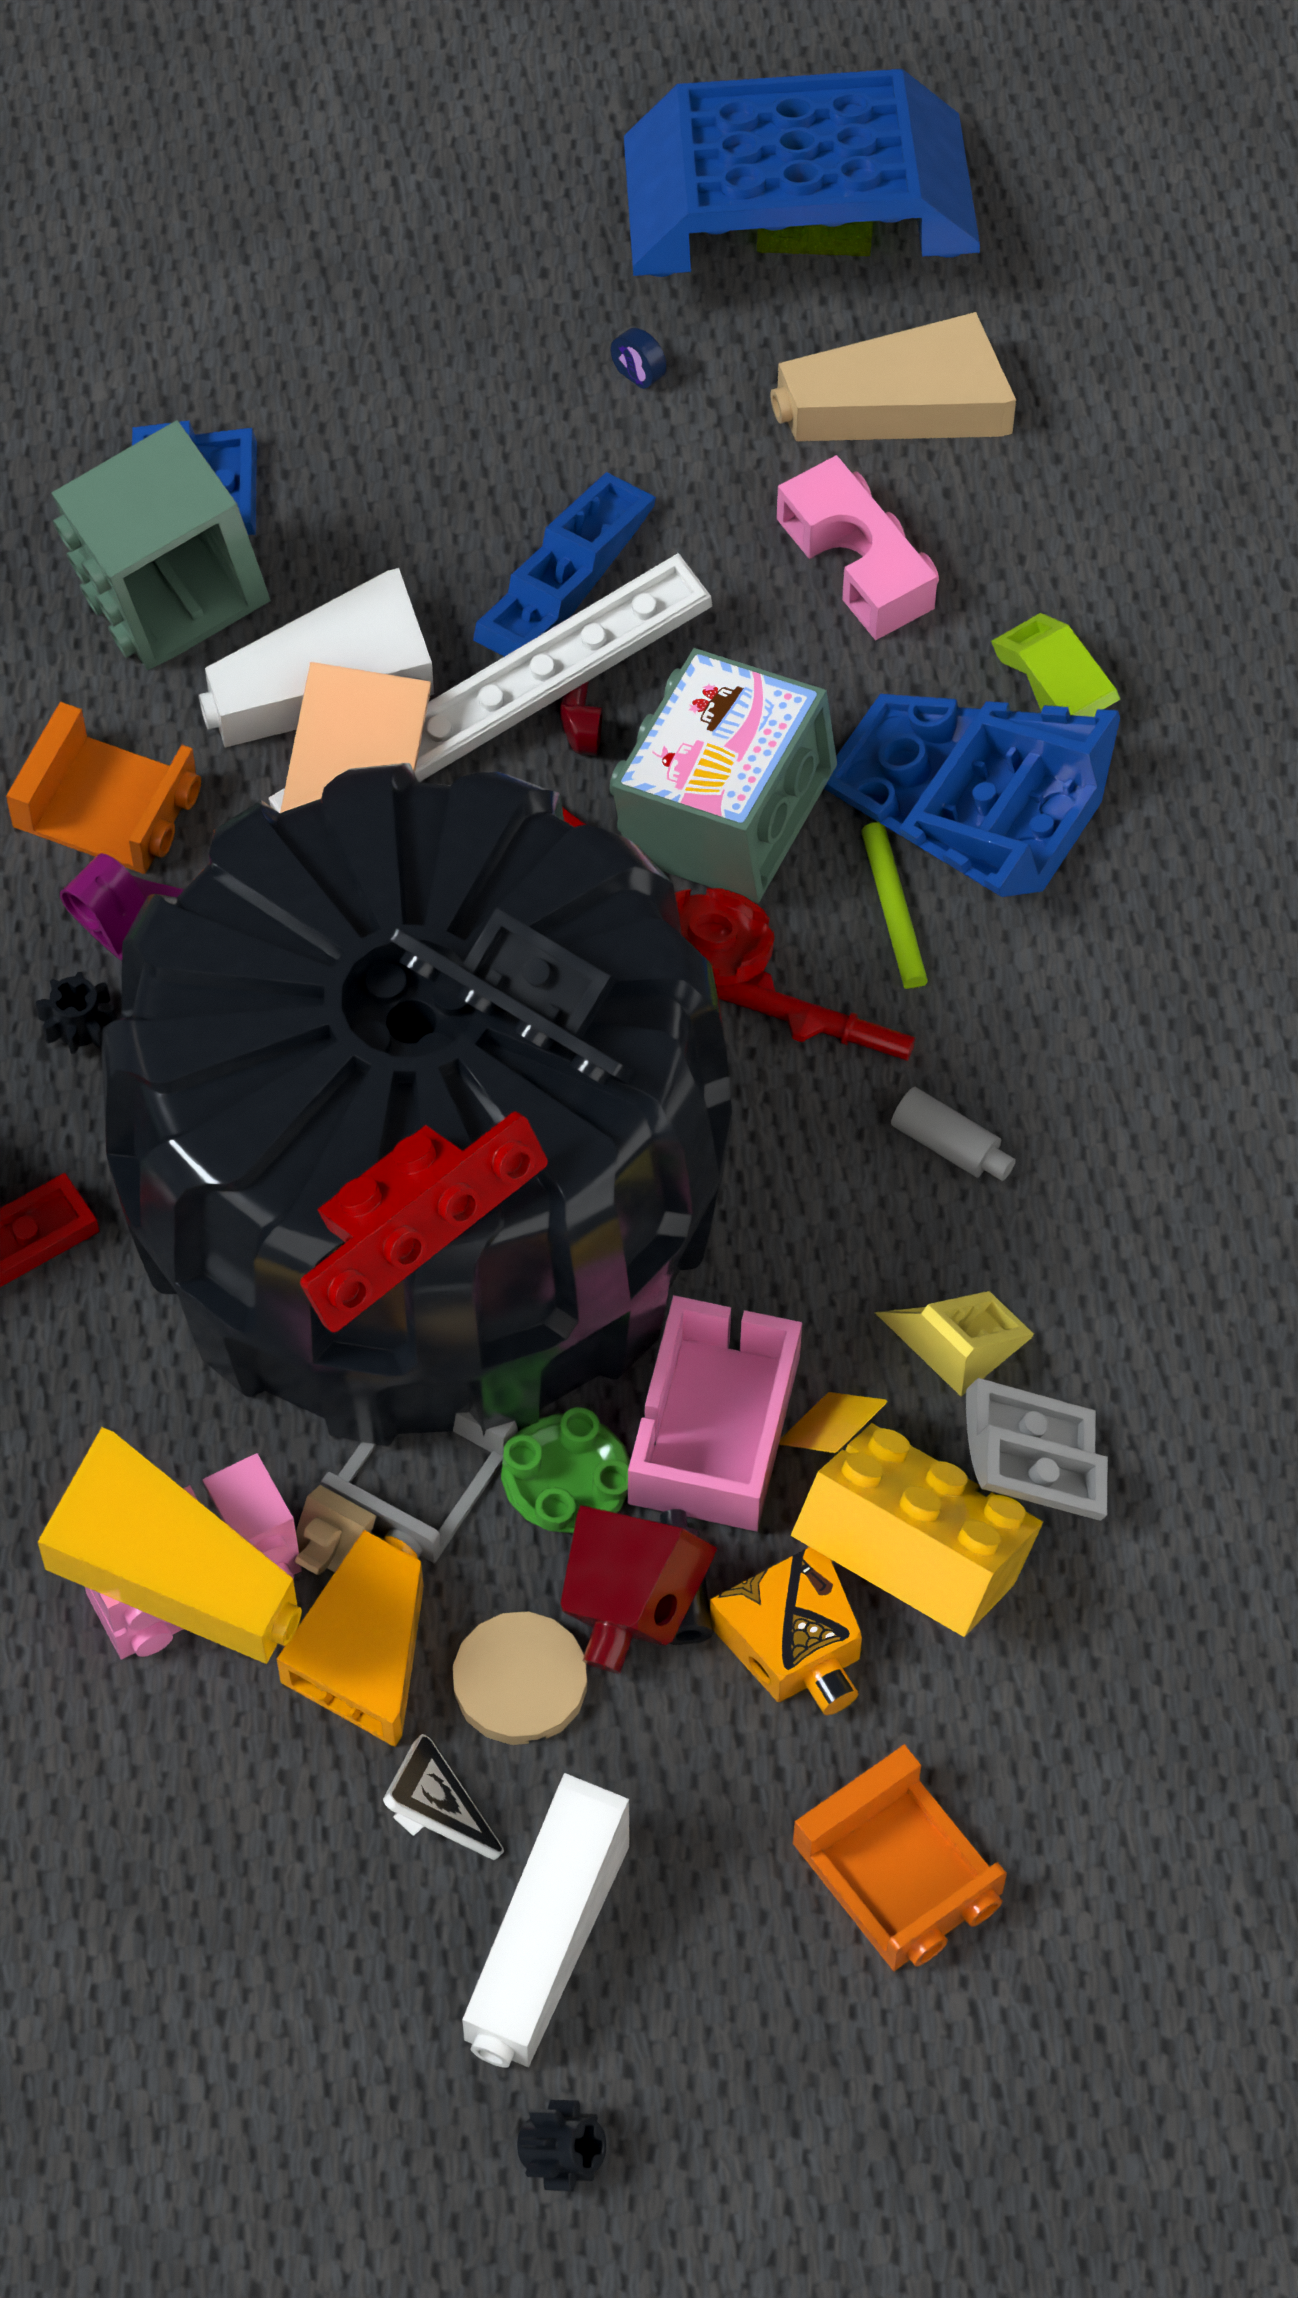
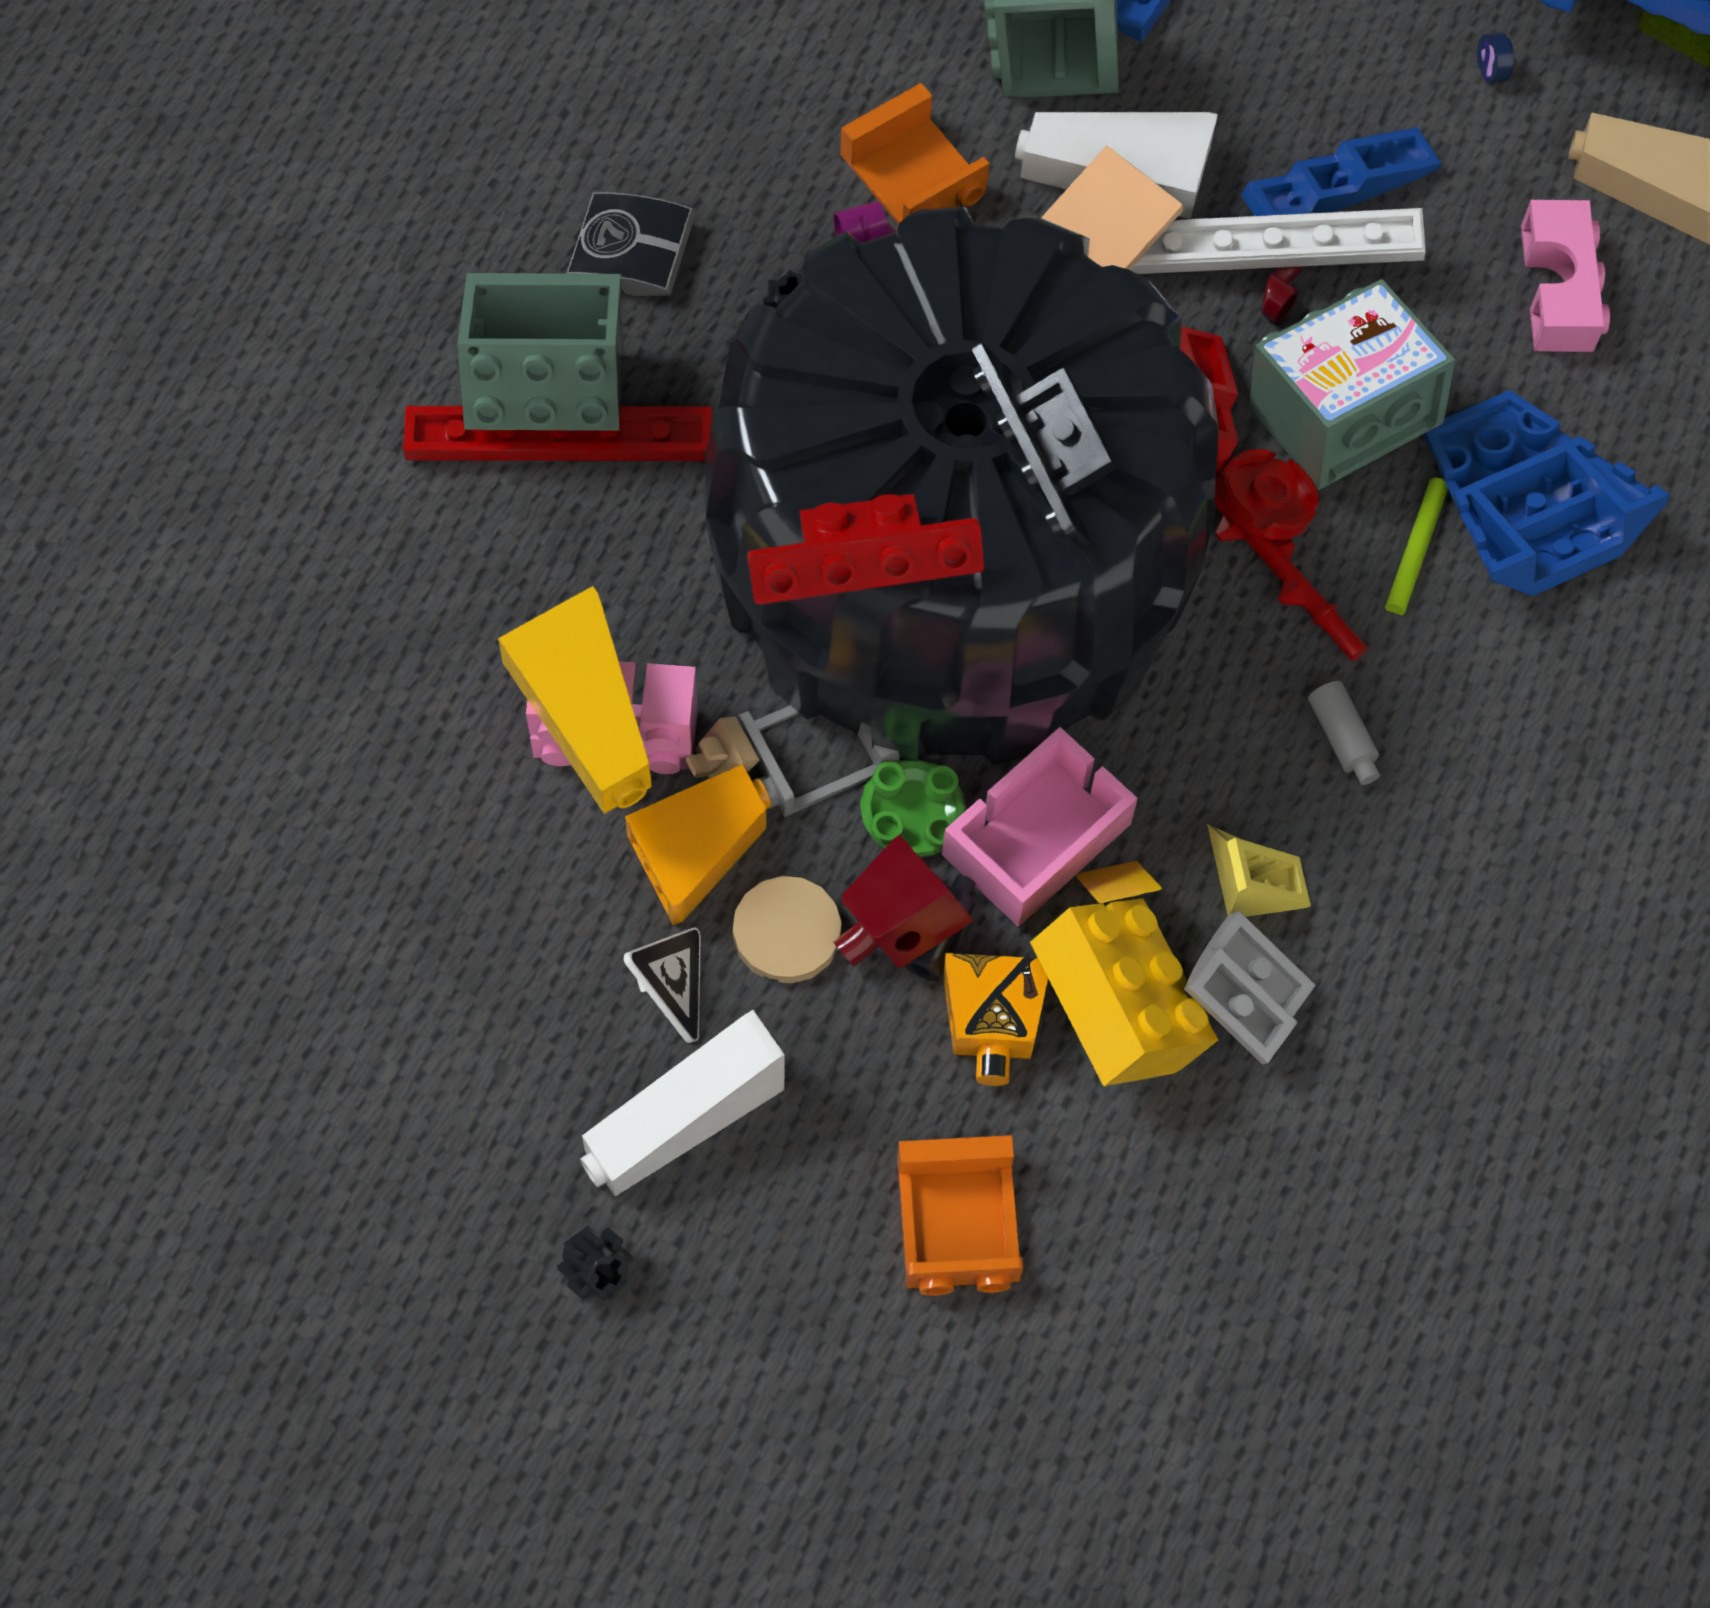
camera: 30 degrees right, 5 degrees up
(1056, 666) = (1652, 440): lime slope -> none

